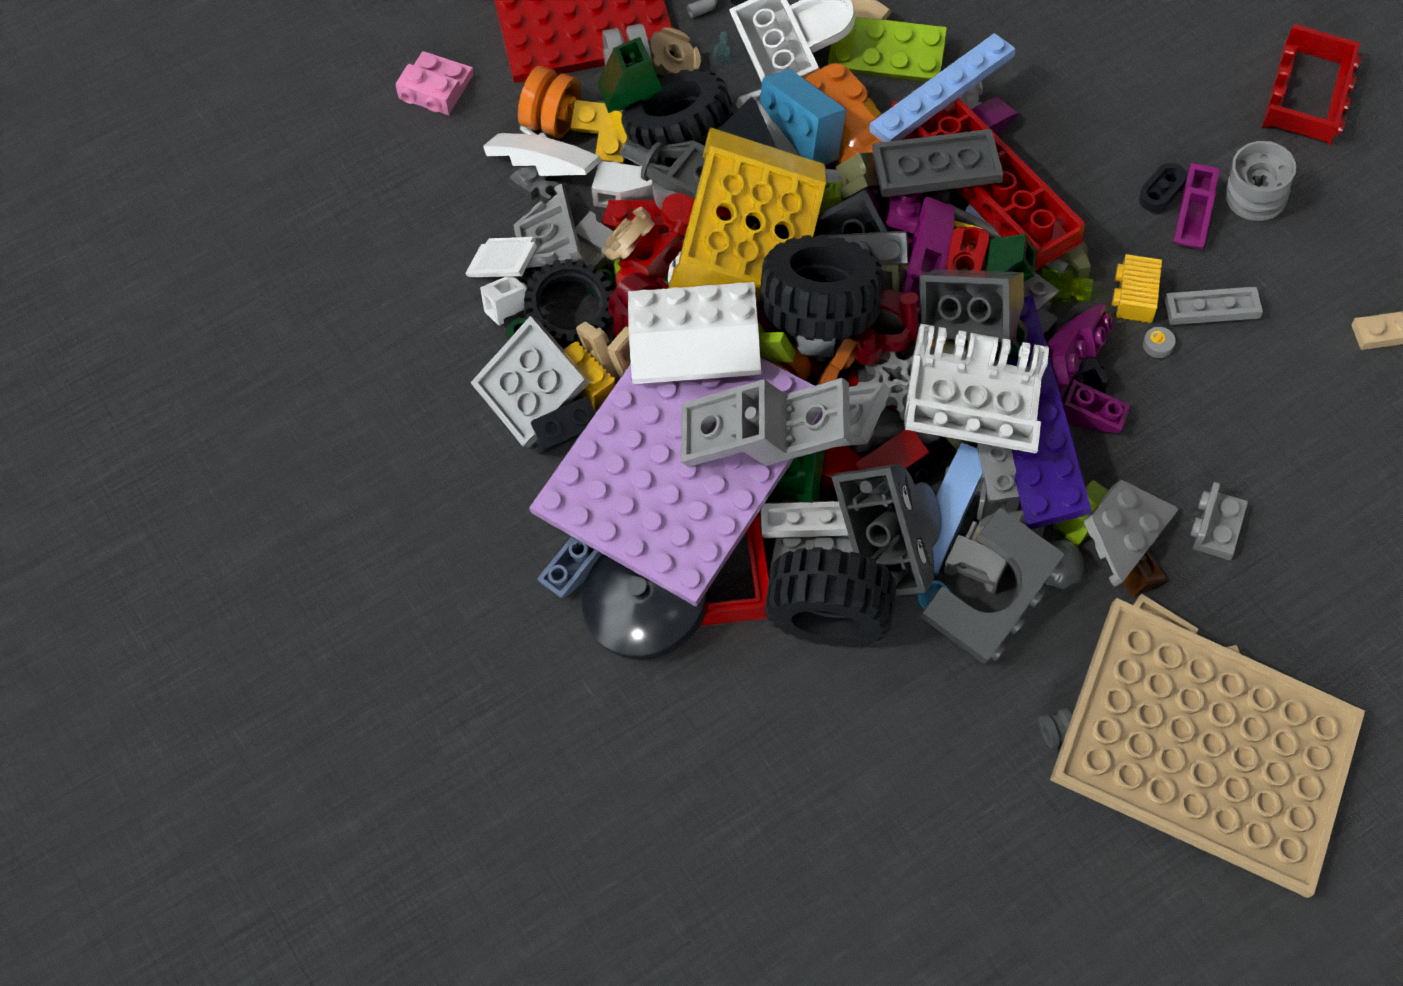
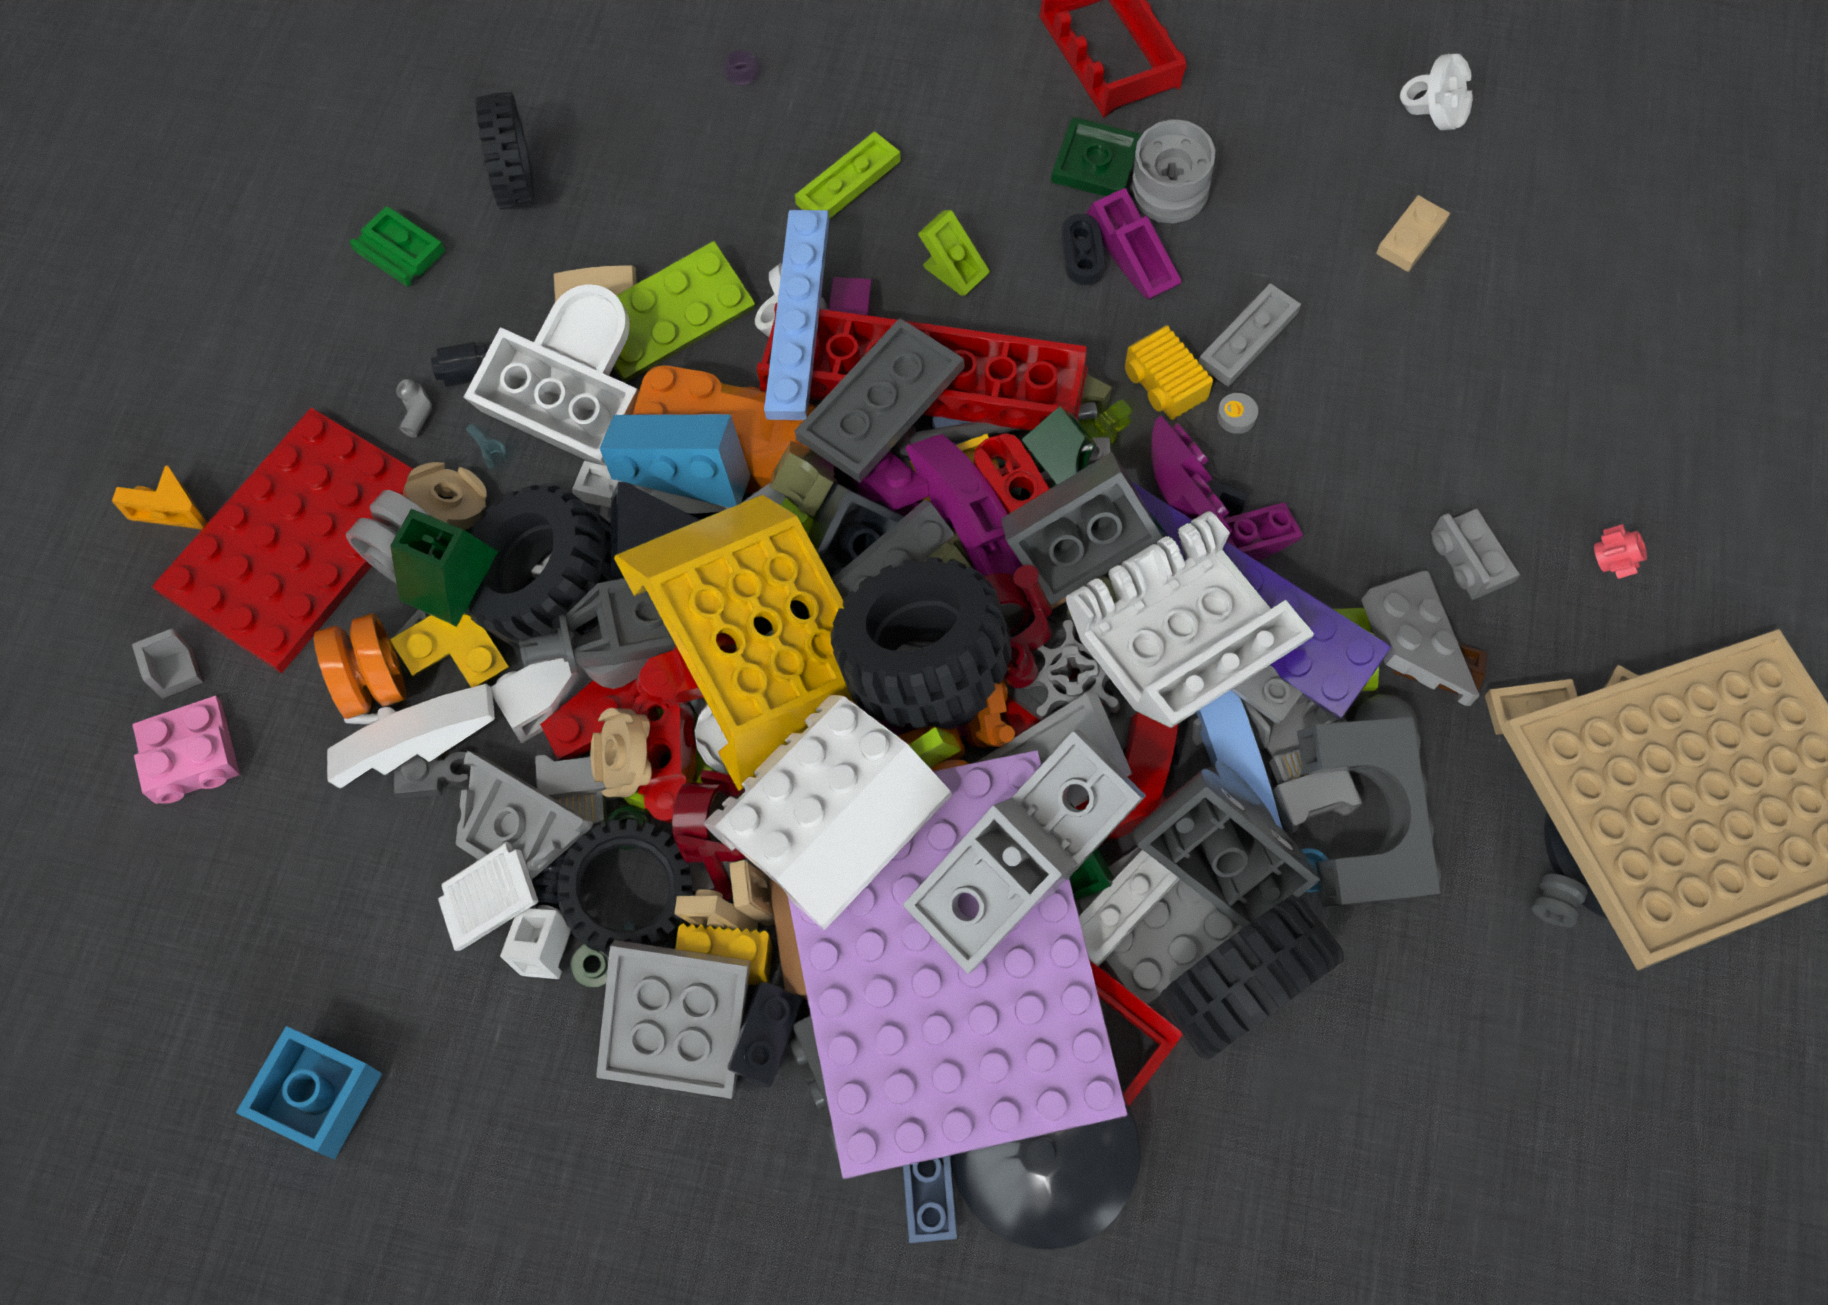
camera: 45 degrees left, 5 degrees up
(338, 276) = (309, 1092): none -> dark azure brick
(464, 34) = (167, 663): none -> light grey panel
(1064, 50) = (849, 176): none -> lime plate
(1079, 132) = (952, 254): none -> lime slope
(1220, 140) = (1095, 157): none -> dark green plate
(1310, 590) = (1620, 551): none -> coral gear

